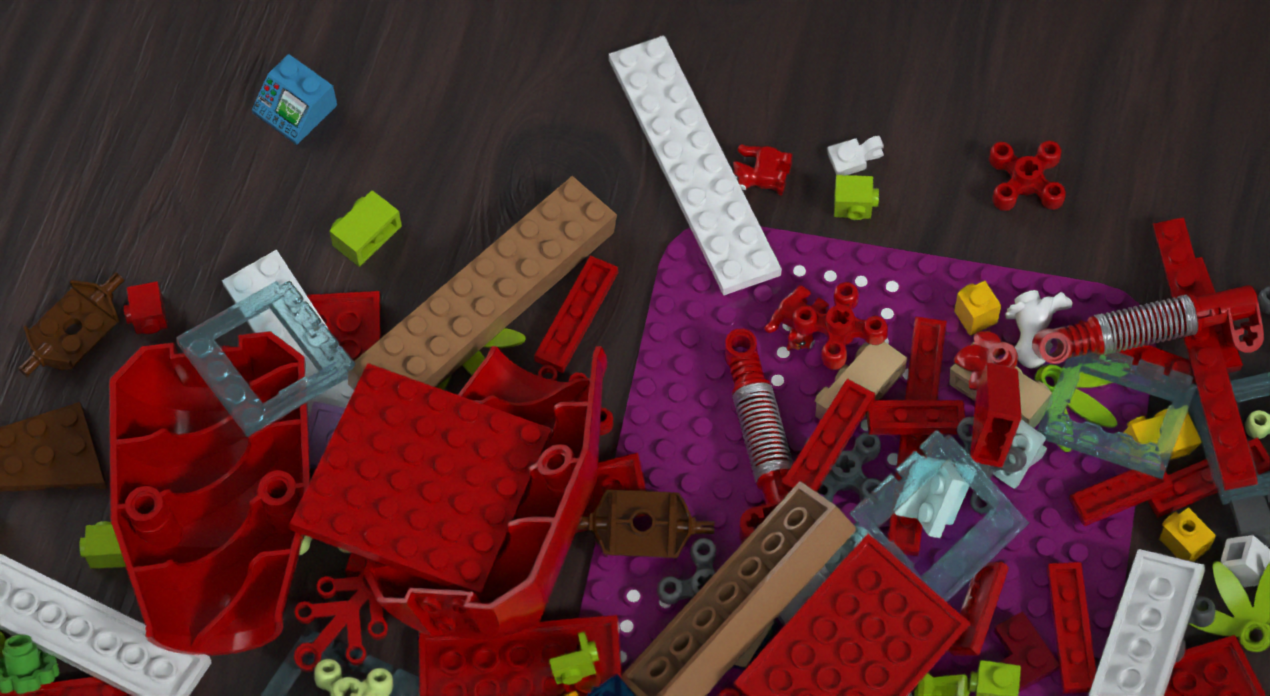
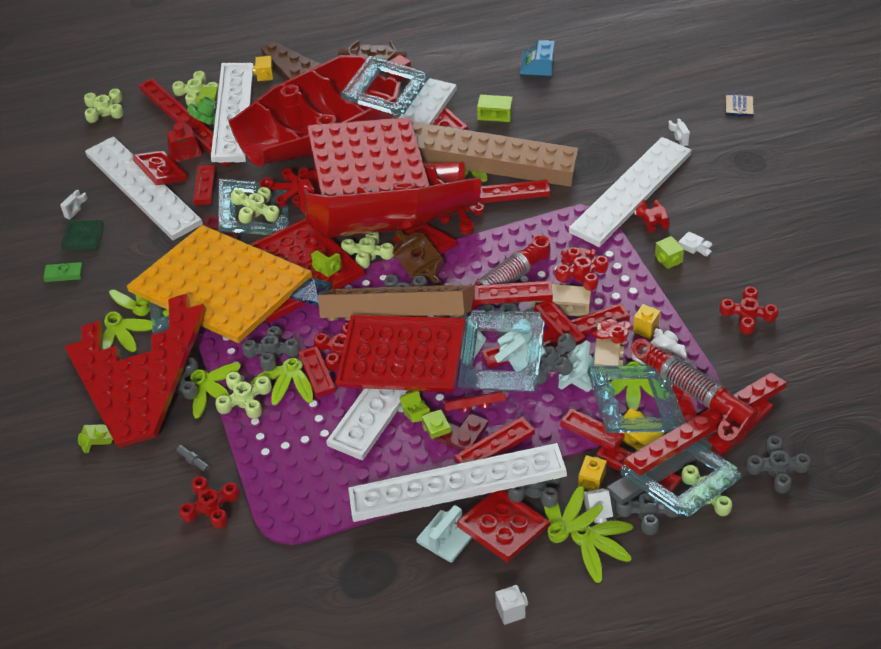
camera: 60 degrees right, 15 degrees down
(583, 602) = (367, 249): none -> yellowish green gear
(618, 22) = (681, 132): none -> white plate
(995, 414) = (575, 335): red slope -> none

